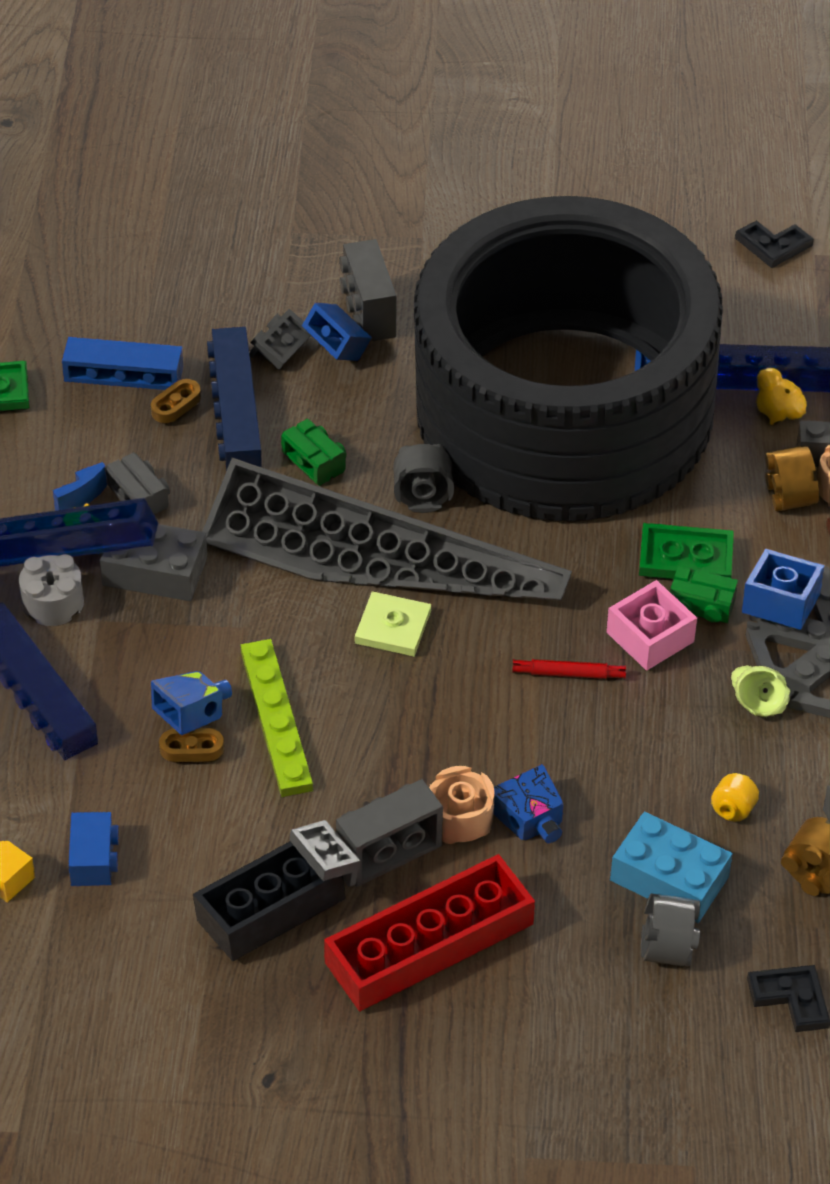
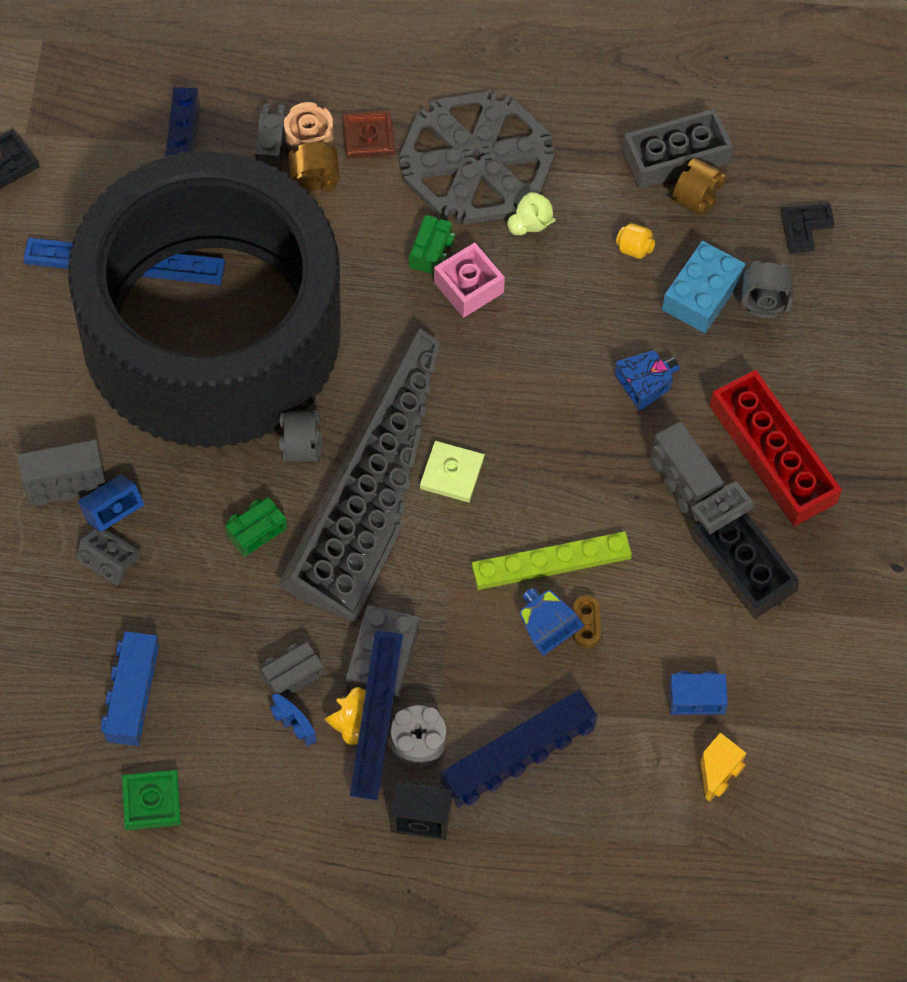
camera: 90 degrees left, 15 degrees up
(175, 401) = (183, 643): pearl gold plate -> none
(235, 396) = (184, 591): dark blue brick -> none
(465, 803) = (649, 416): light nougat brick -> none
(569, 669) = (502, 347): red piece -> none
(683, 546) = (383, 254): green plate -> none
(782, 589) = (444, 182): blue brick -> none

